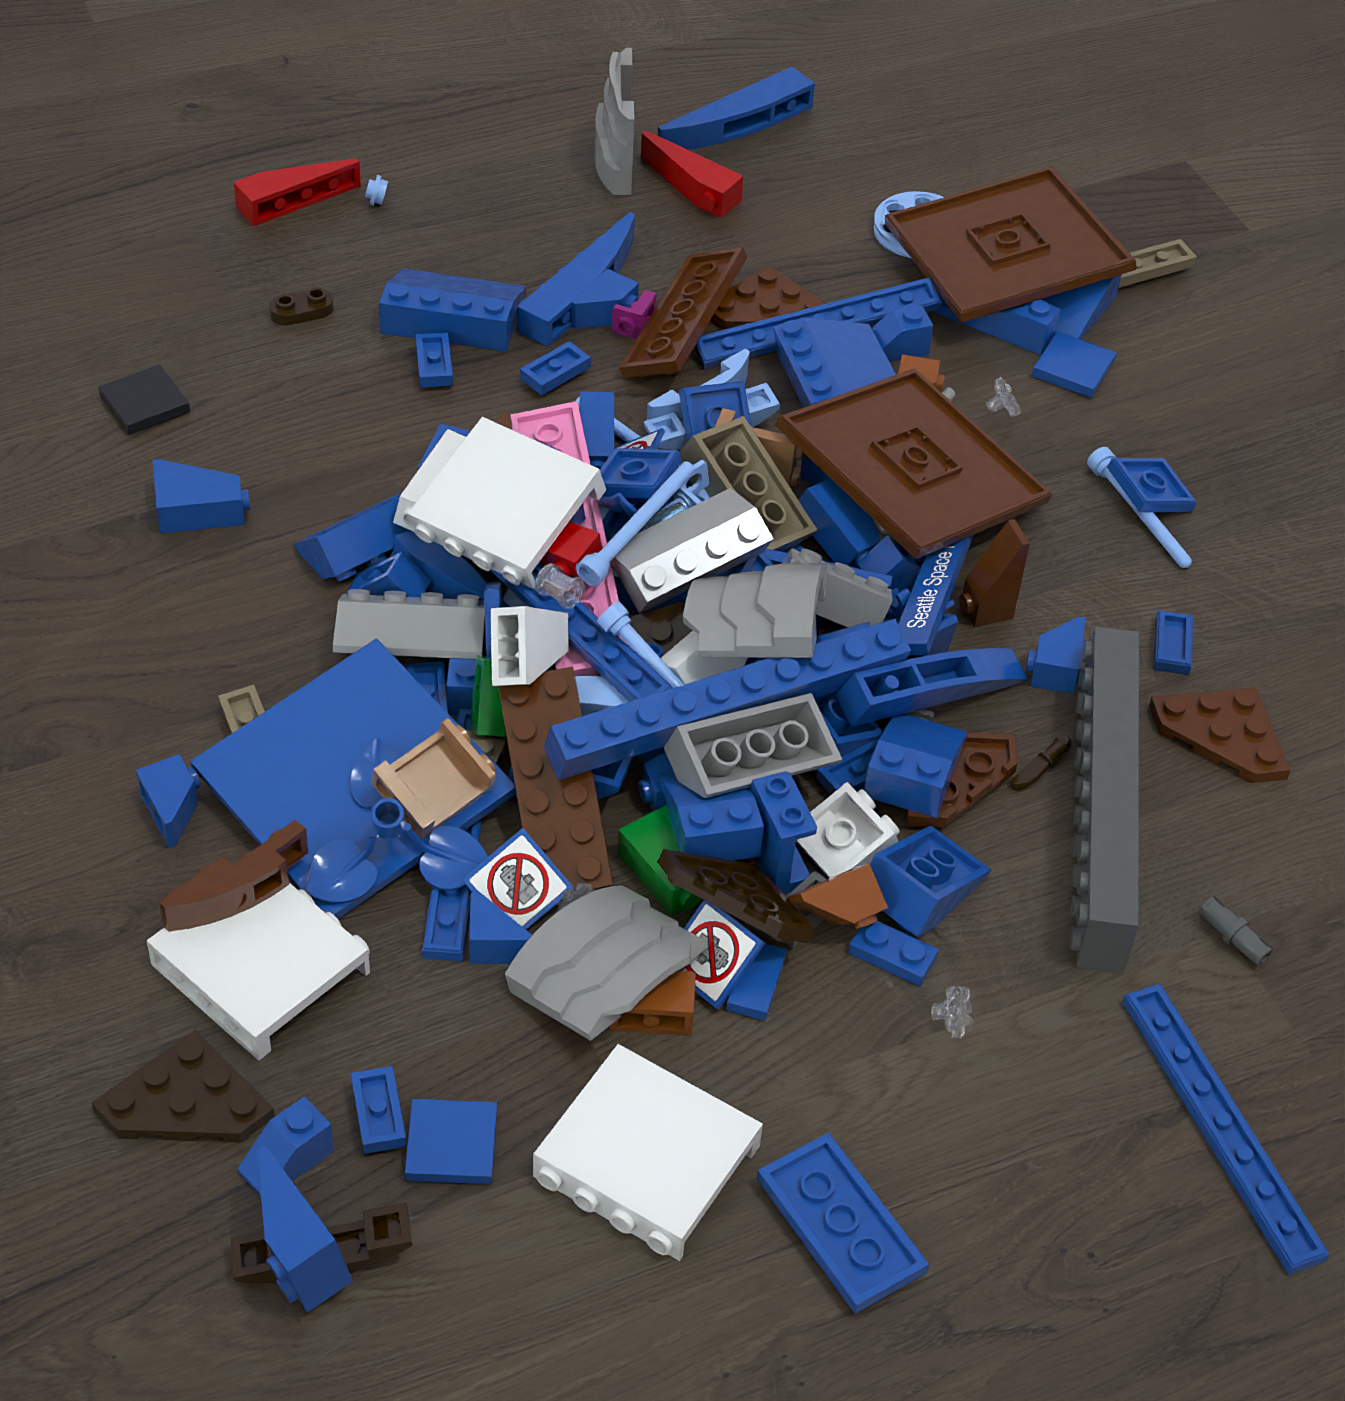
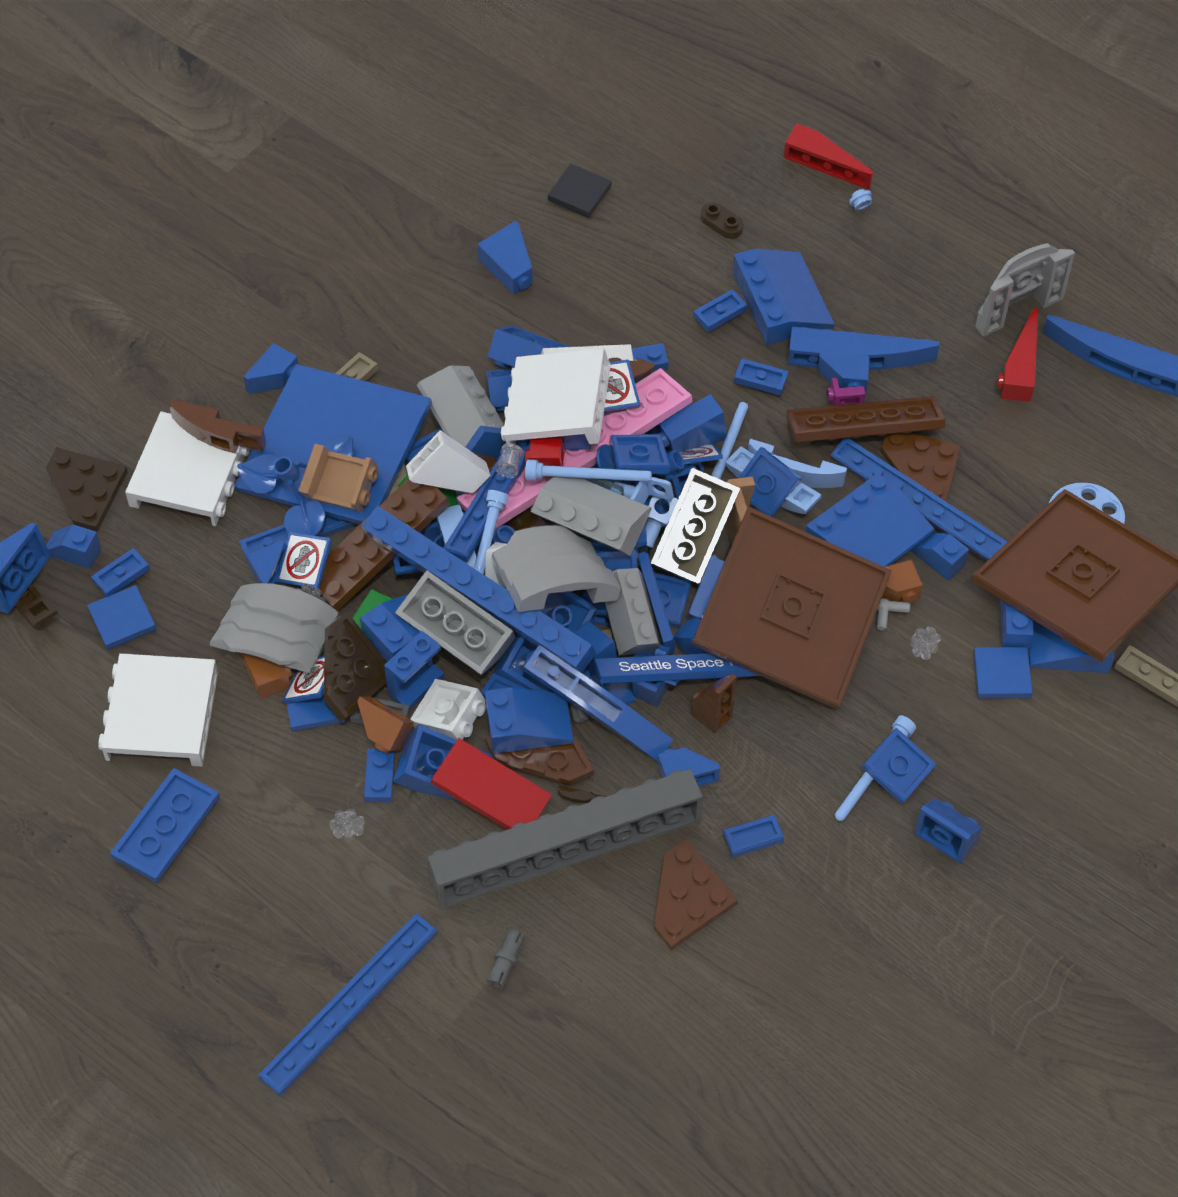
camera: 65 degrees right, 10 degrees up
(990, 839) = (489, 786): none -> red tile
(1259, 481) = (947, 829): none -> blue slope

